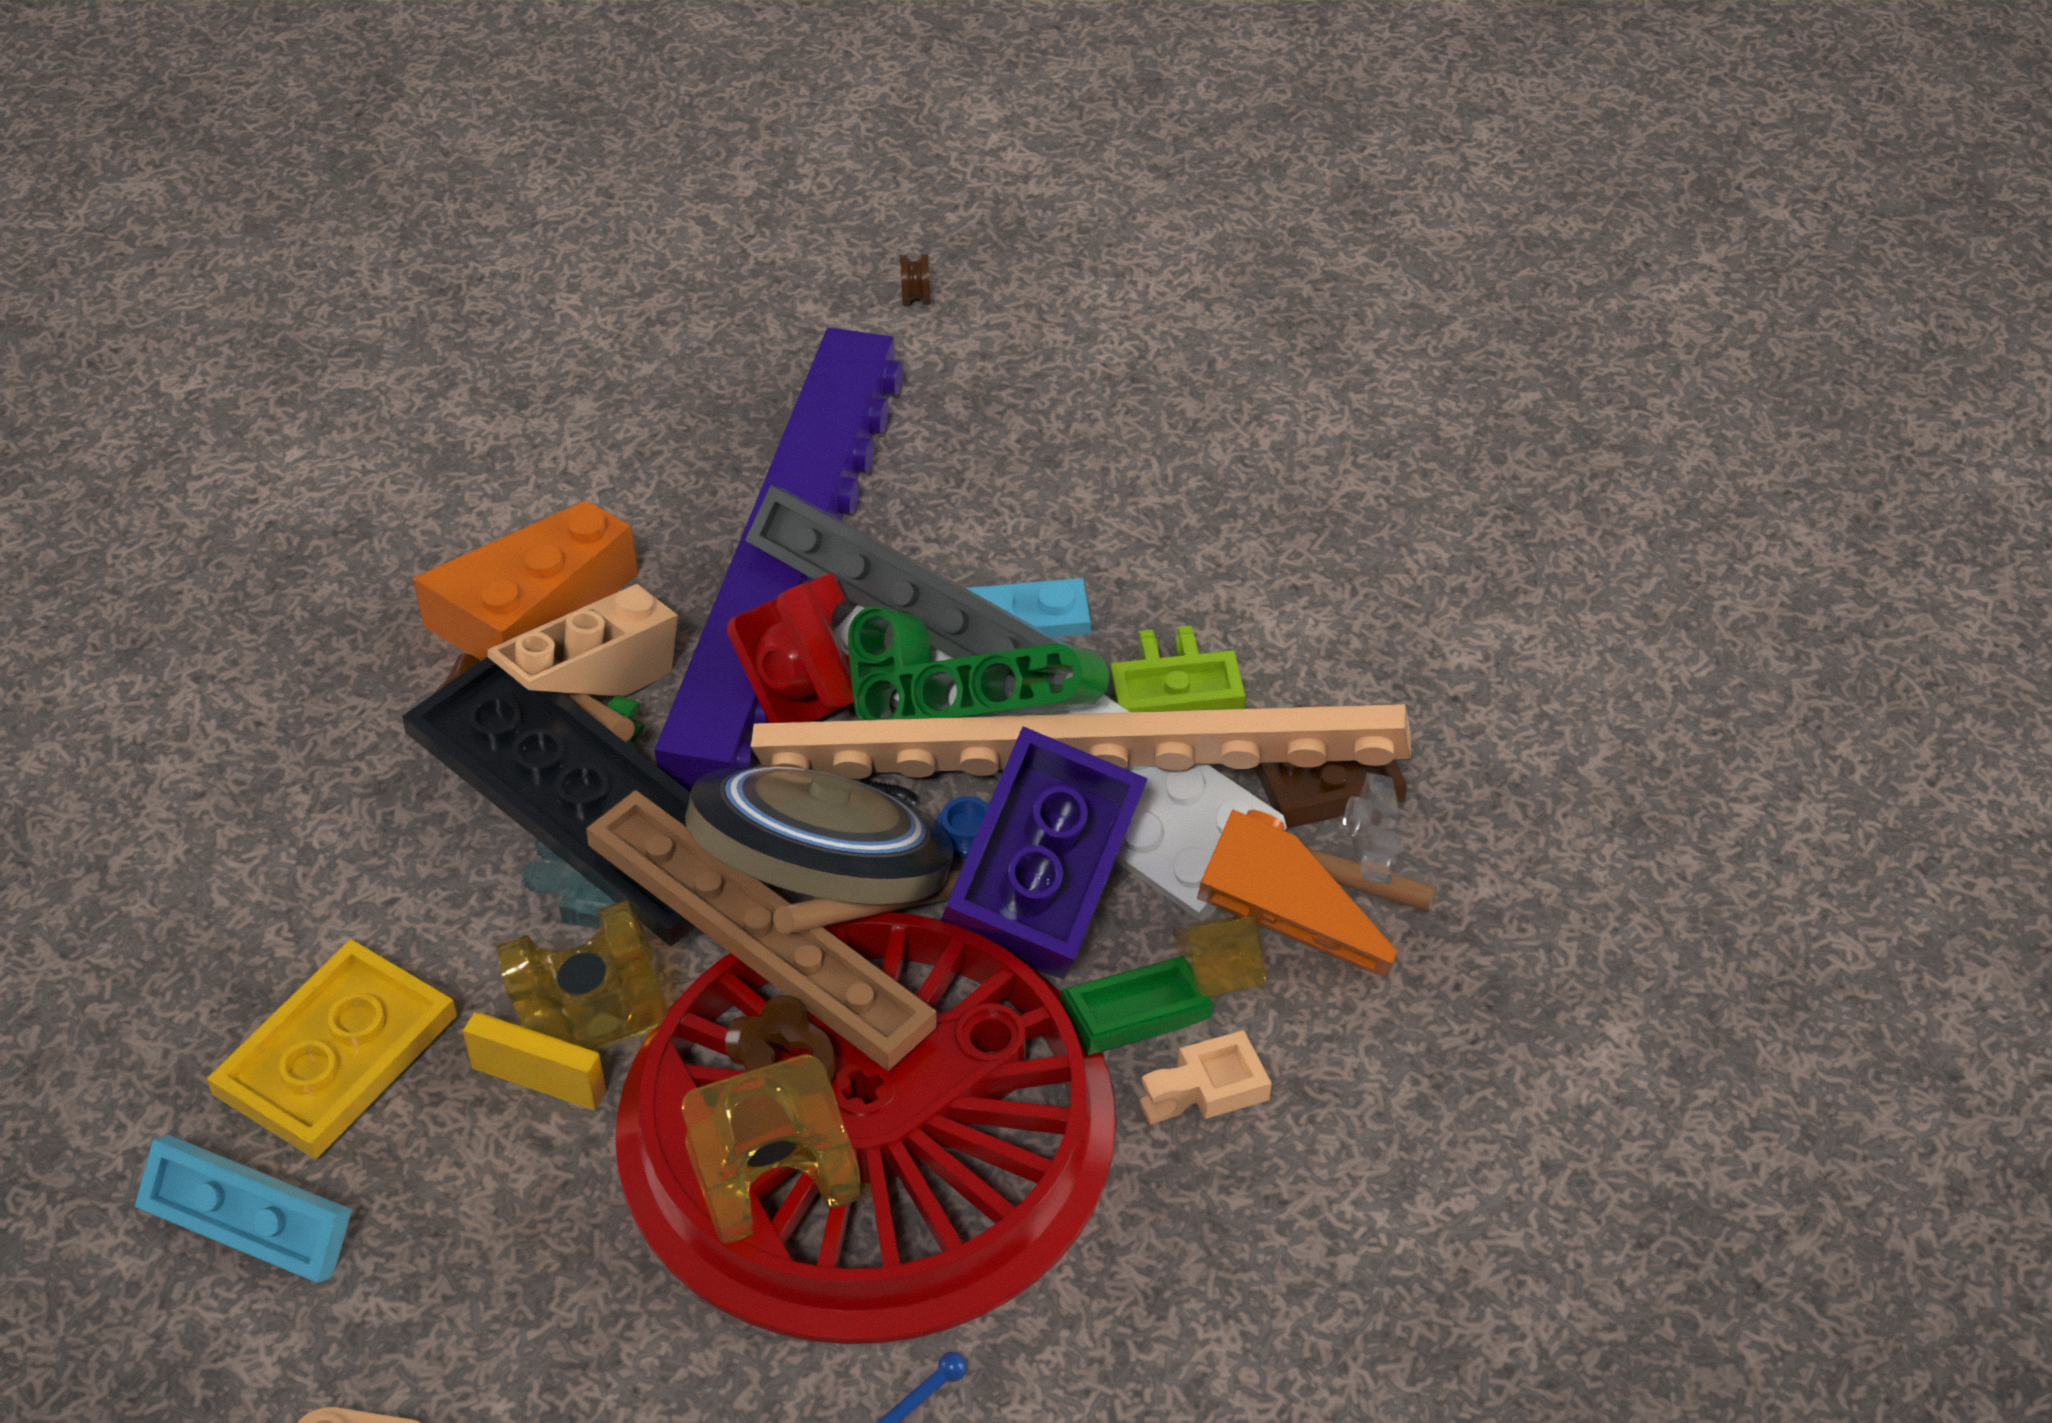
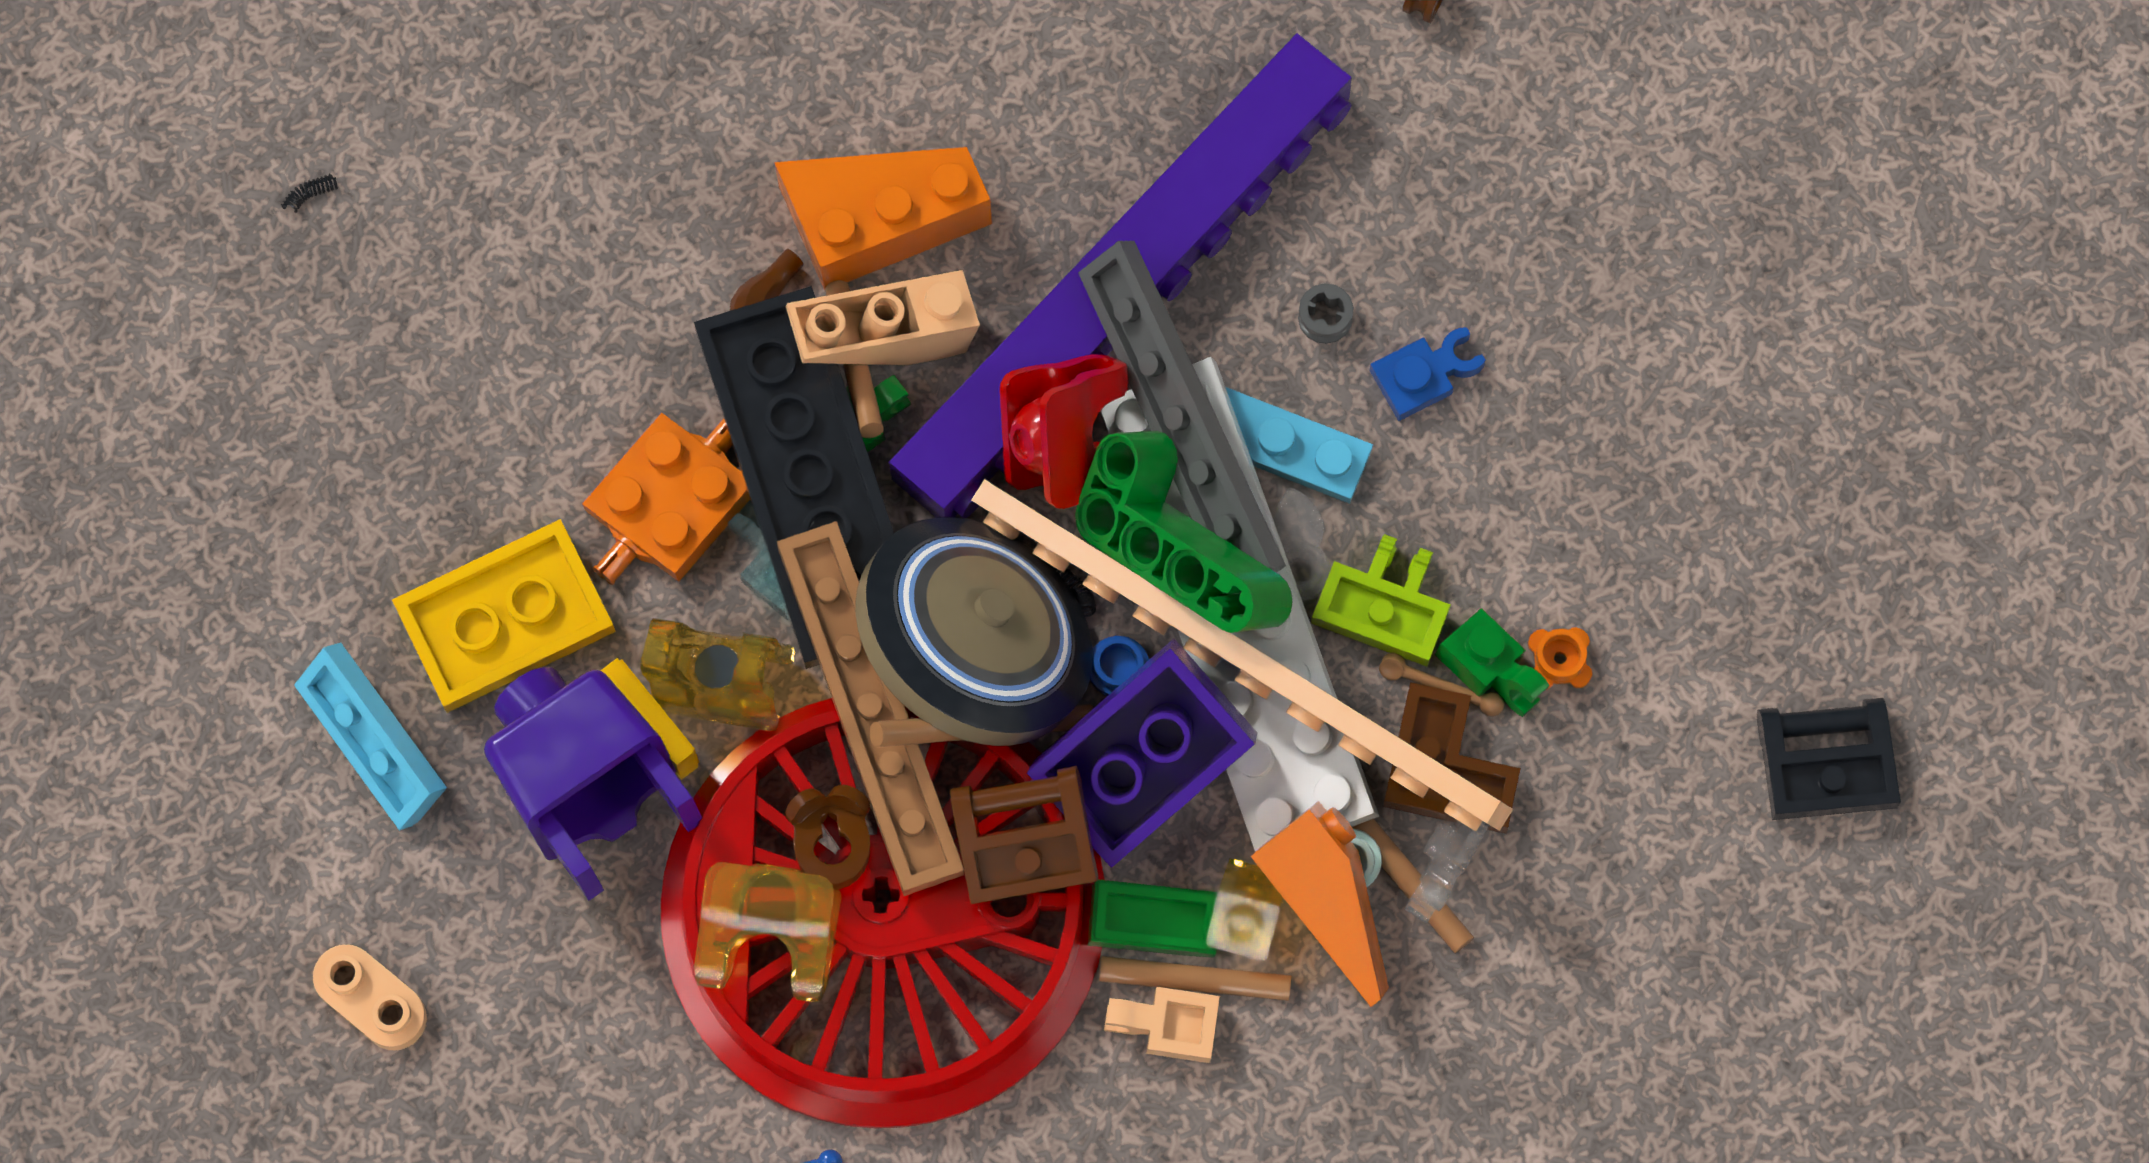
camera: 30 degrees right, 25 degrees up
(451, 886) = (667, 499): none -> orange plate
(490, 1118) = (580, 764): none -> dark purple piece
(974, 499) = (1319, 329): none -> dark grey bush
(989, 974) = (1028, 856): none -> reddish brown plate
(1089, 522) = (1418, 377): none -> blue plate
(1166, 1051) = (1195, 978): none -> medium nougat bar
(1290, 679) = (1488, 657): none -> green plate
(1355, 641) = (1572, 645): none -> orange plate
(1639, 639) = (1832, 777): none -> black plate

